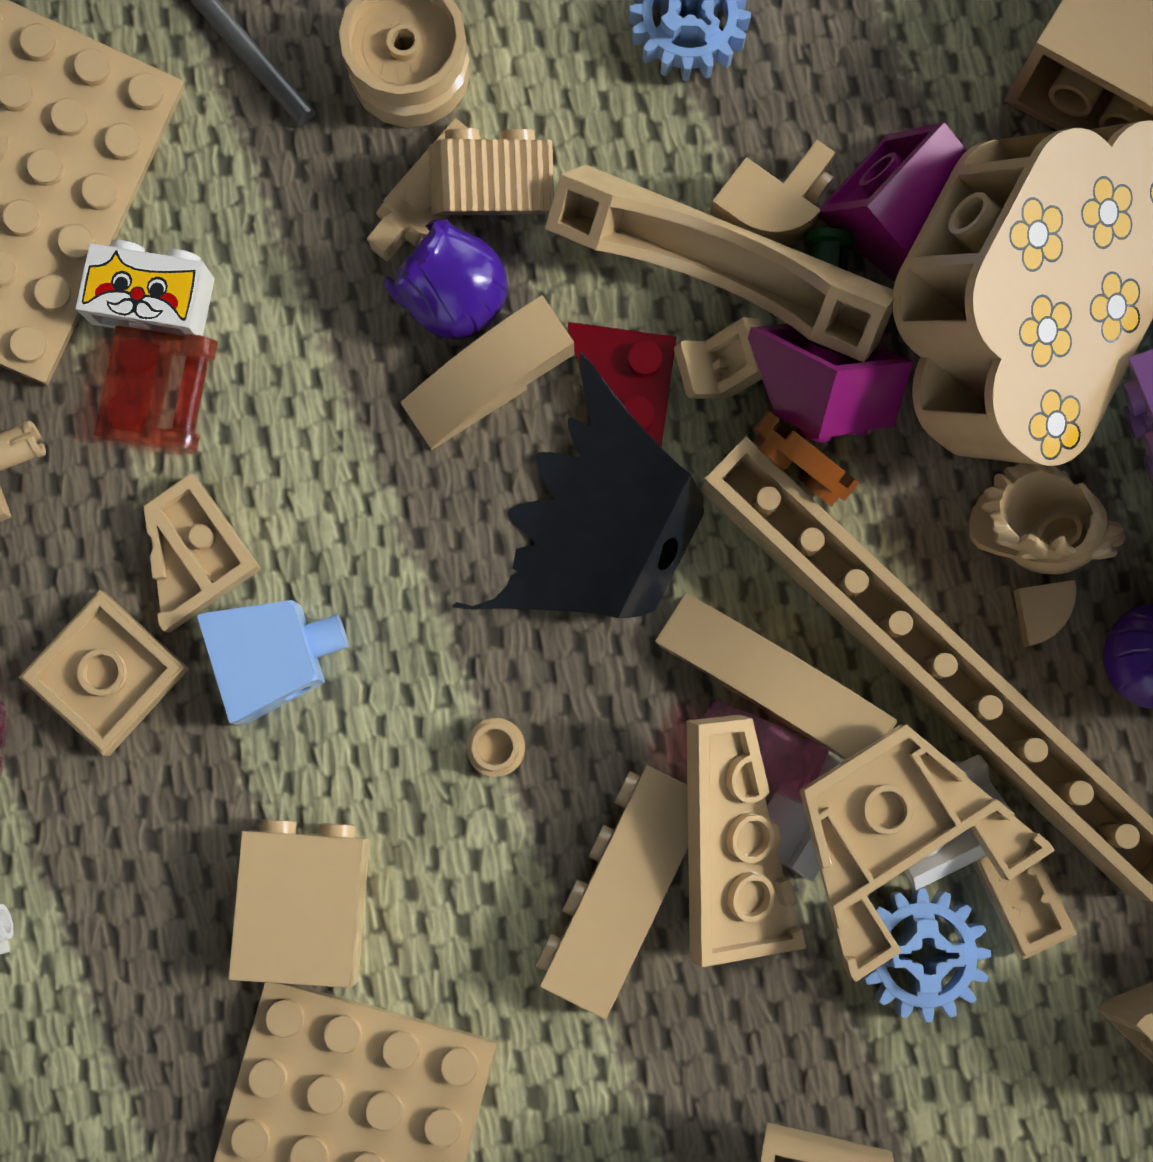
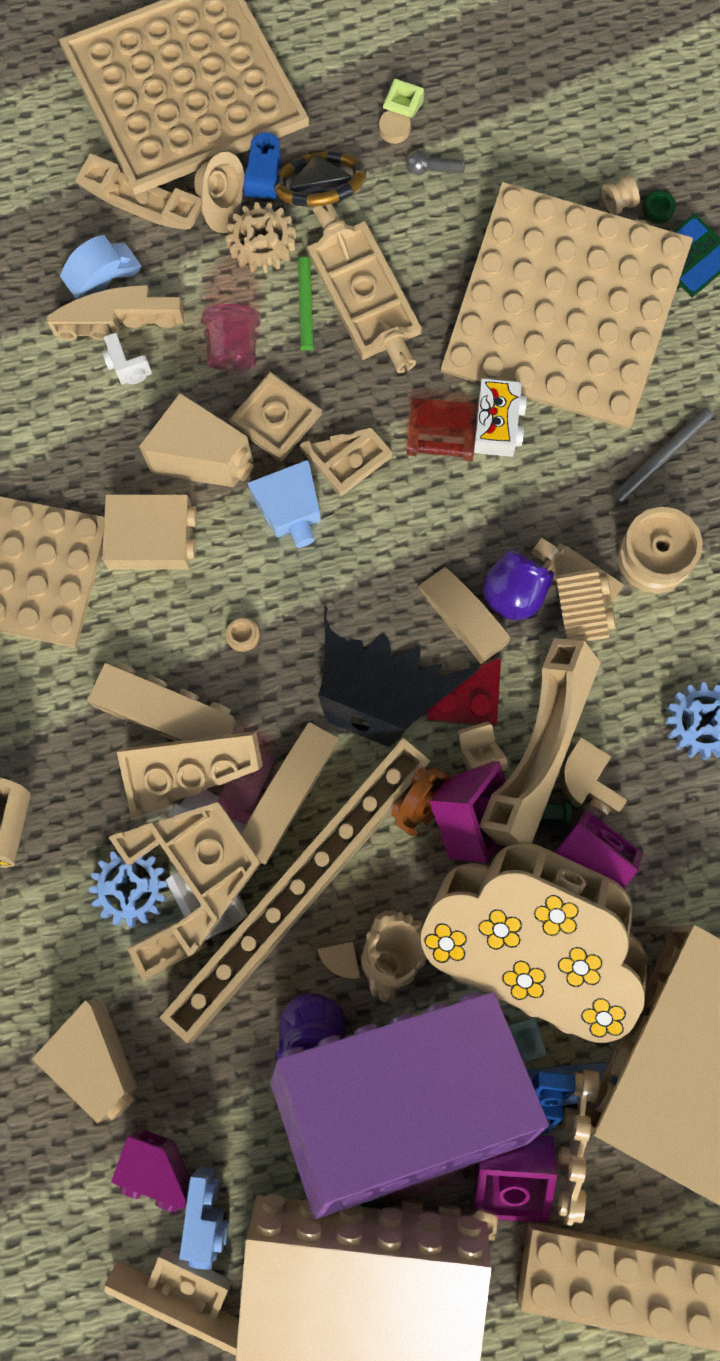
camera: 90 degrees right, 5 degrees down
(151, 809) = (197, 446): none -> tan slope

